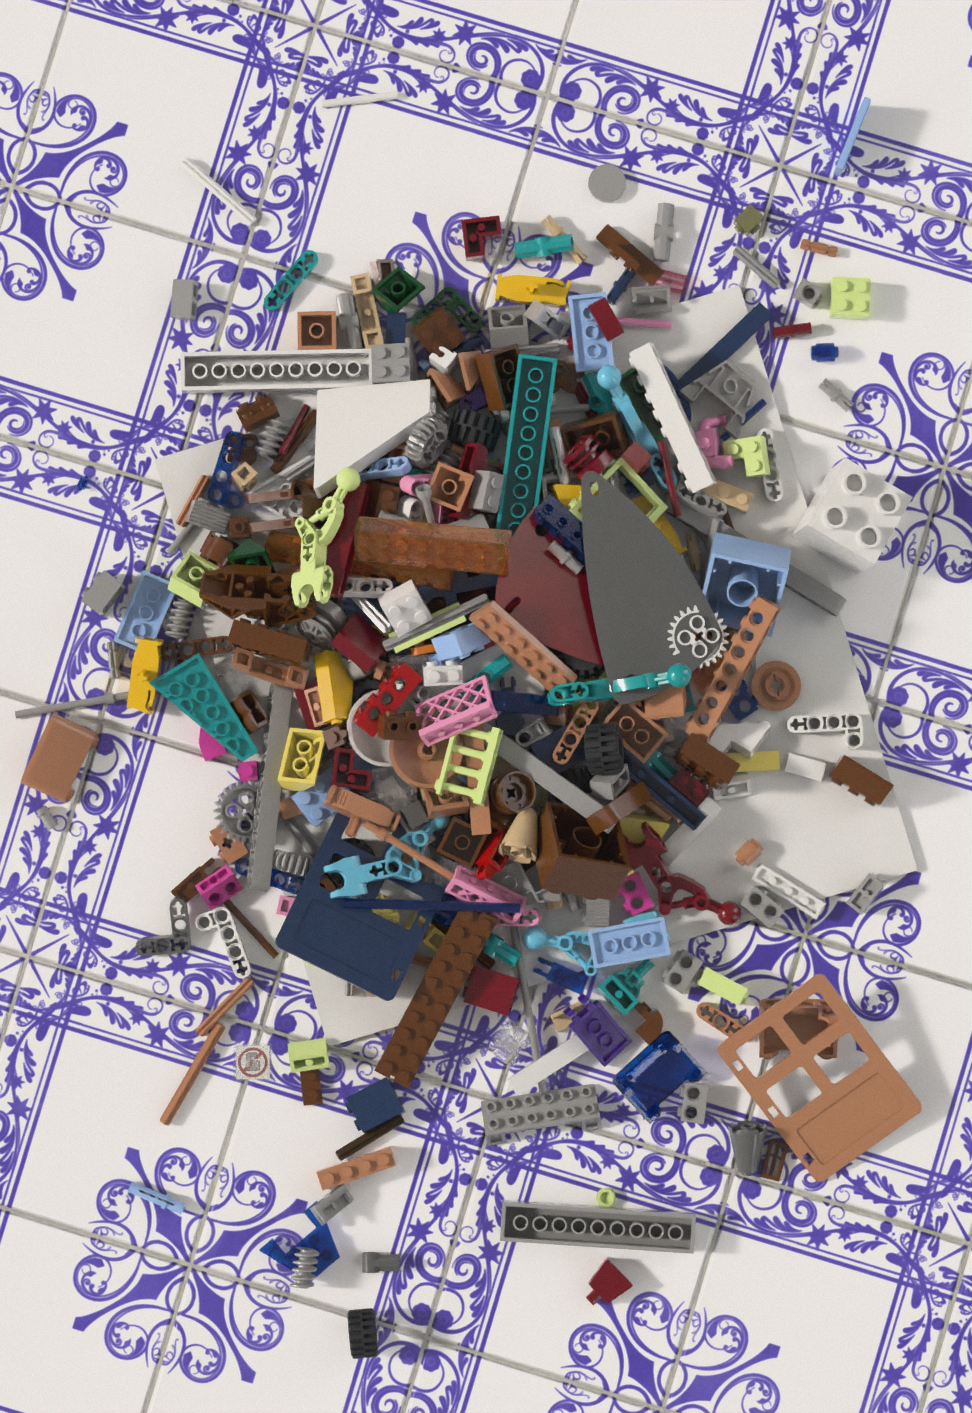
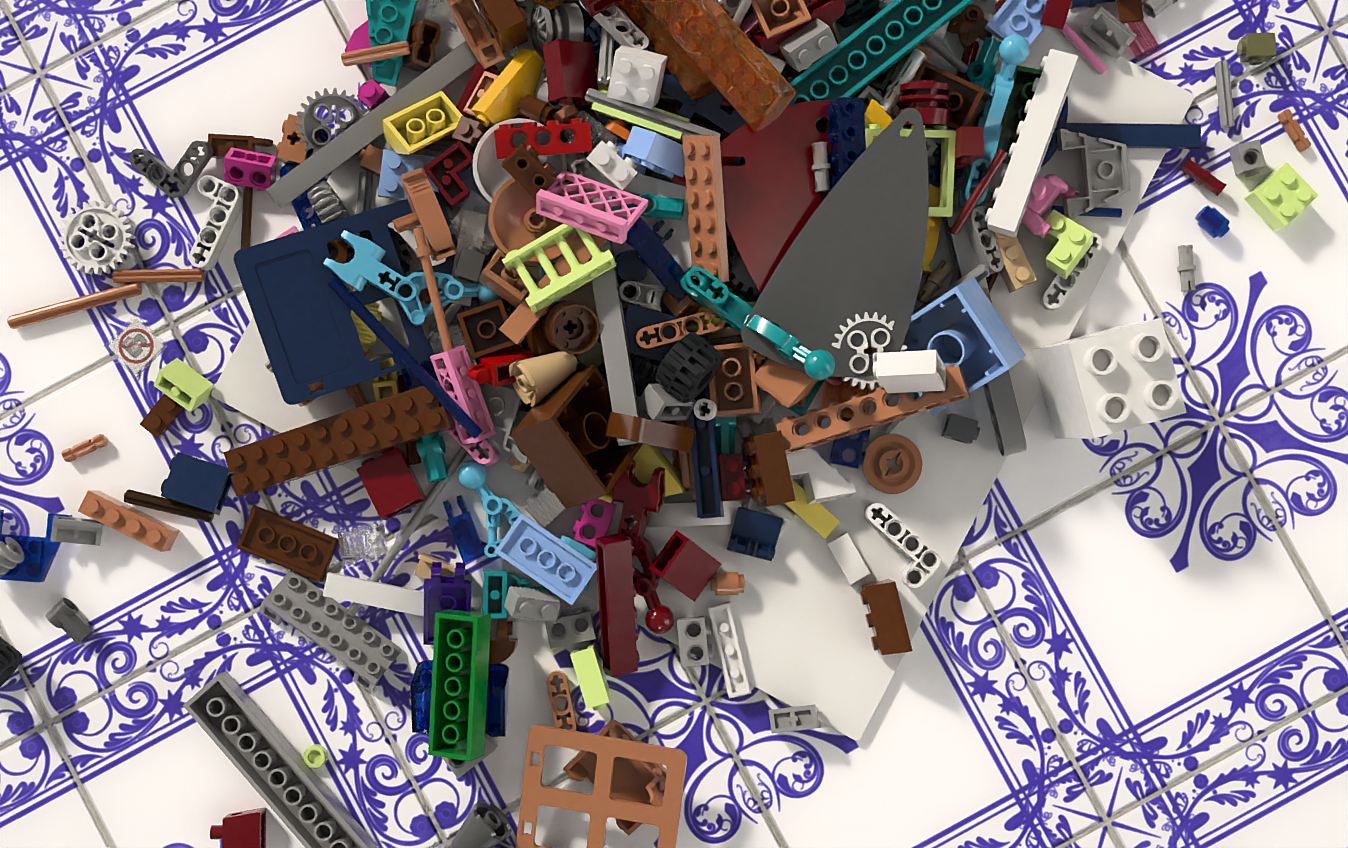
camera: 45 degrees right, 0 degrees up
(160, 1003) = (87, 257): none -> white gear
(230, 744) = (375, 53): none -> nougat axle
(284, 1152) = (84, 448): none -> nougat axle
(361, 685) = (535, 109): none -> reddish brown brick
(463, 1088) = (287, 543): none -> reddish brown tile
(637, 757) = (699, 413): none -> white bush
(646, 977) = (532, 604): none -> light grey brick
(651, 1065) = (459, 684): none -> green brick
(696, 928) = (617, 604): none -> dark red brick
(713, 866) = (685, 565): none -> dark red brick
(734, 628) = (910, 371): none -> white brick
(736, 807) = (755, 534): none -> dark blue hinge
(796, 625) = (961, 428): none -> dark grey brick

